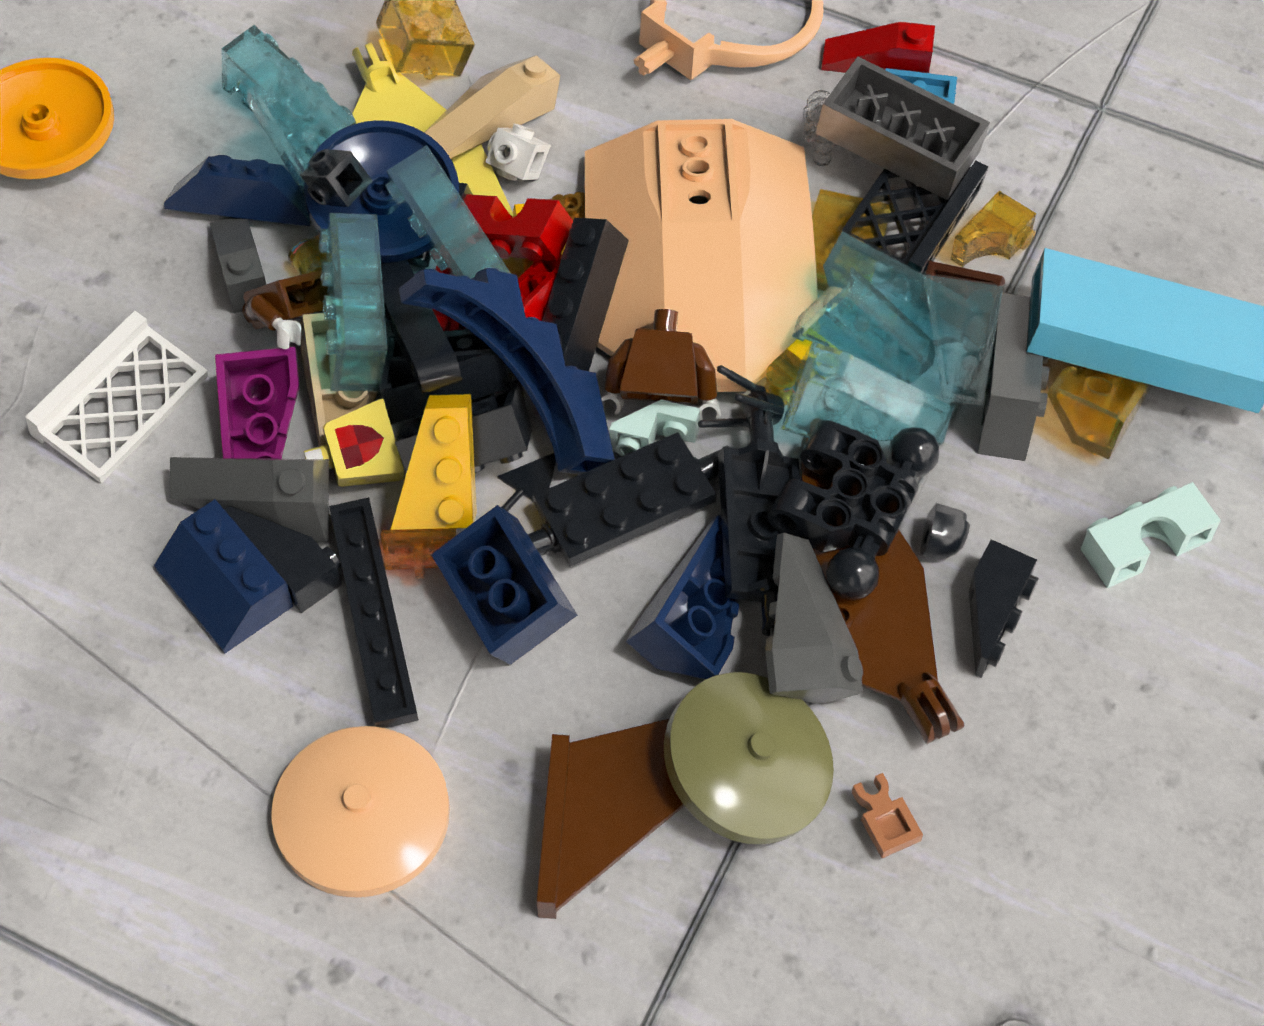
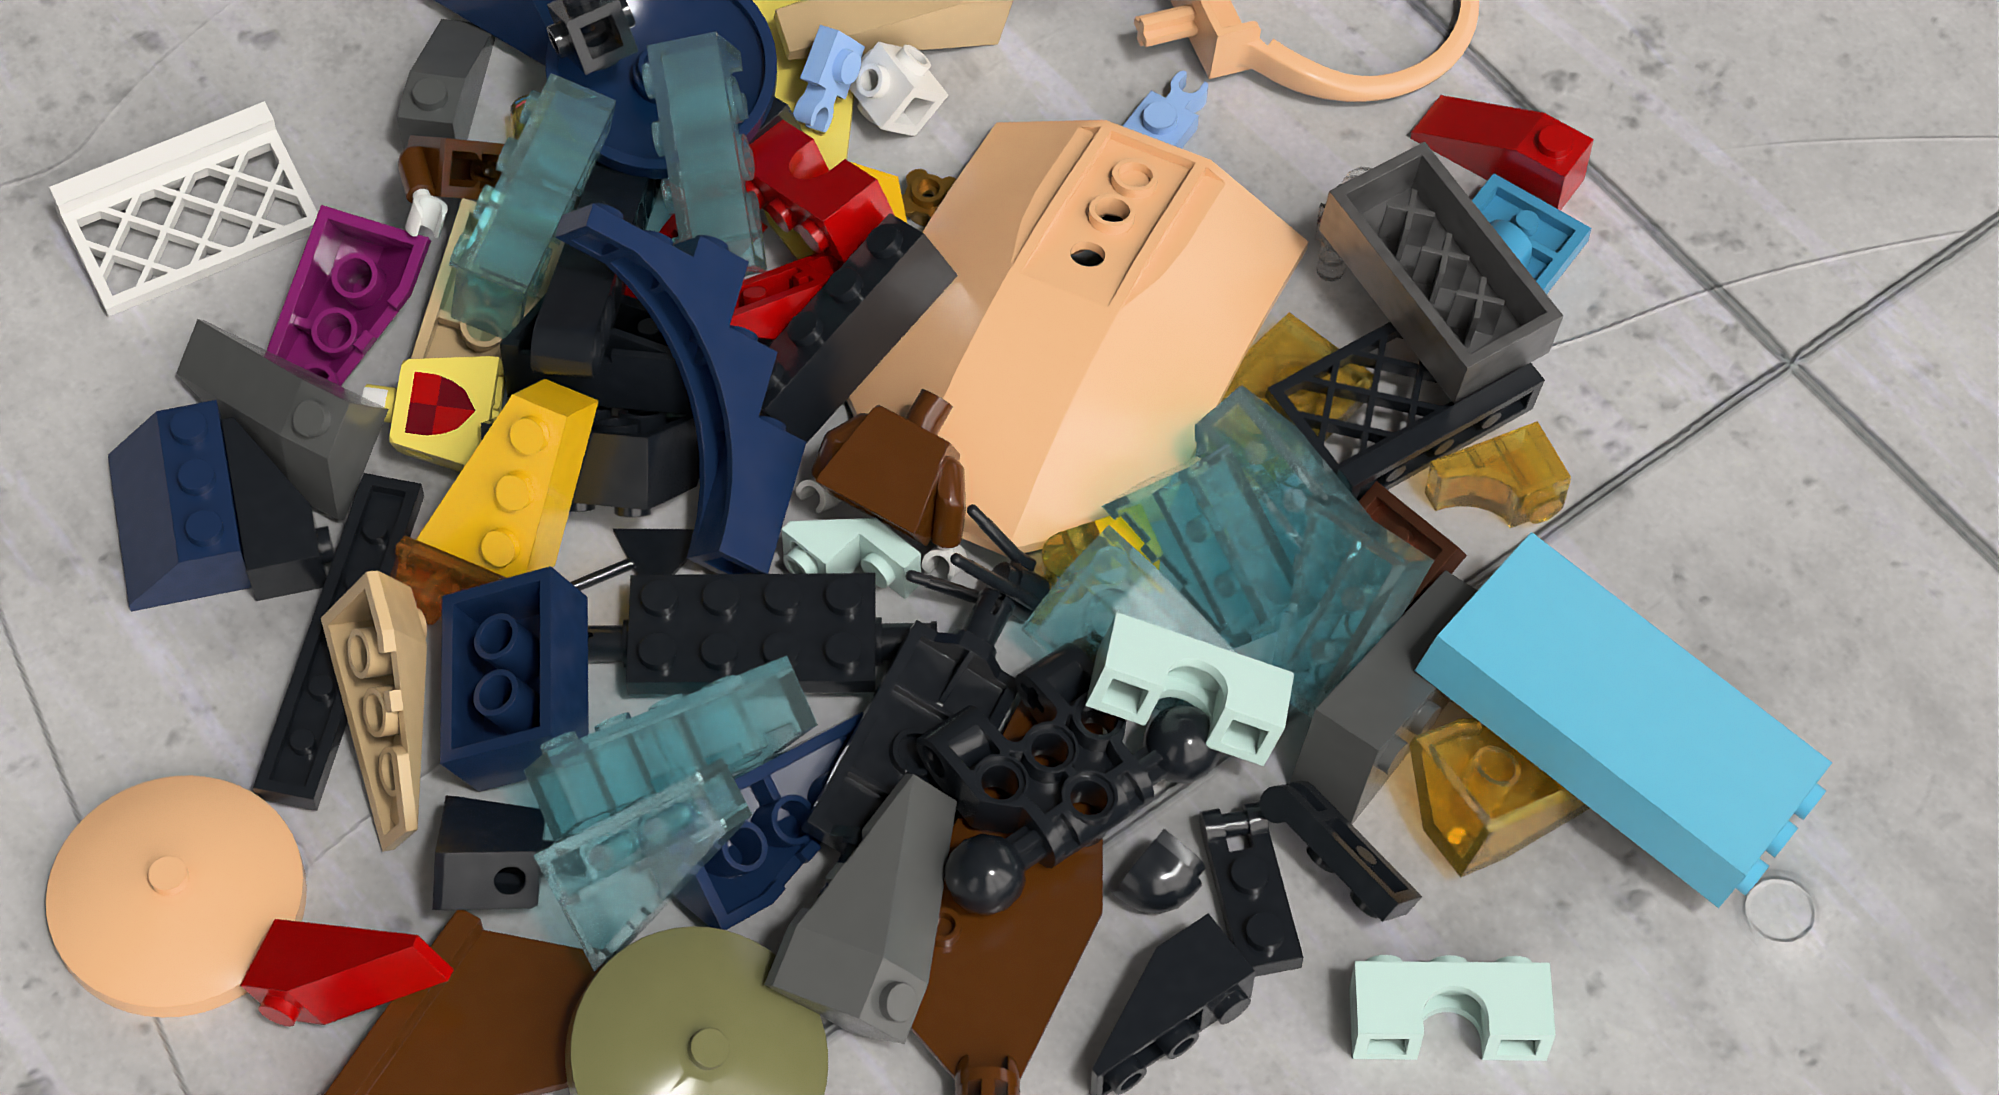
camera: 25 degrees right, 0 degrees up
(423, 626) = (381, 671): none -> tan wedge
(477, 157) = (829, 74): none -> light blue plate
(499, 807) = (337, 971): none -> red slope
(554, 694) = (488, 855): none -> black torso
(628, 581) = (630, 757): none -> clear light blue wedge
(656, 648) = (638, 858): none -> clear light blue wedge
(681, 104) = (1171, 117): none -> light blue plate
(878, 413) = (1237, 693): none -> light aqua arch
(993, 514) = (1251, 889): none -> black plate
(1032, 472) = (1340, 849): none -> black plate

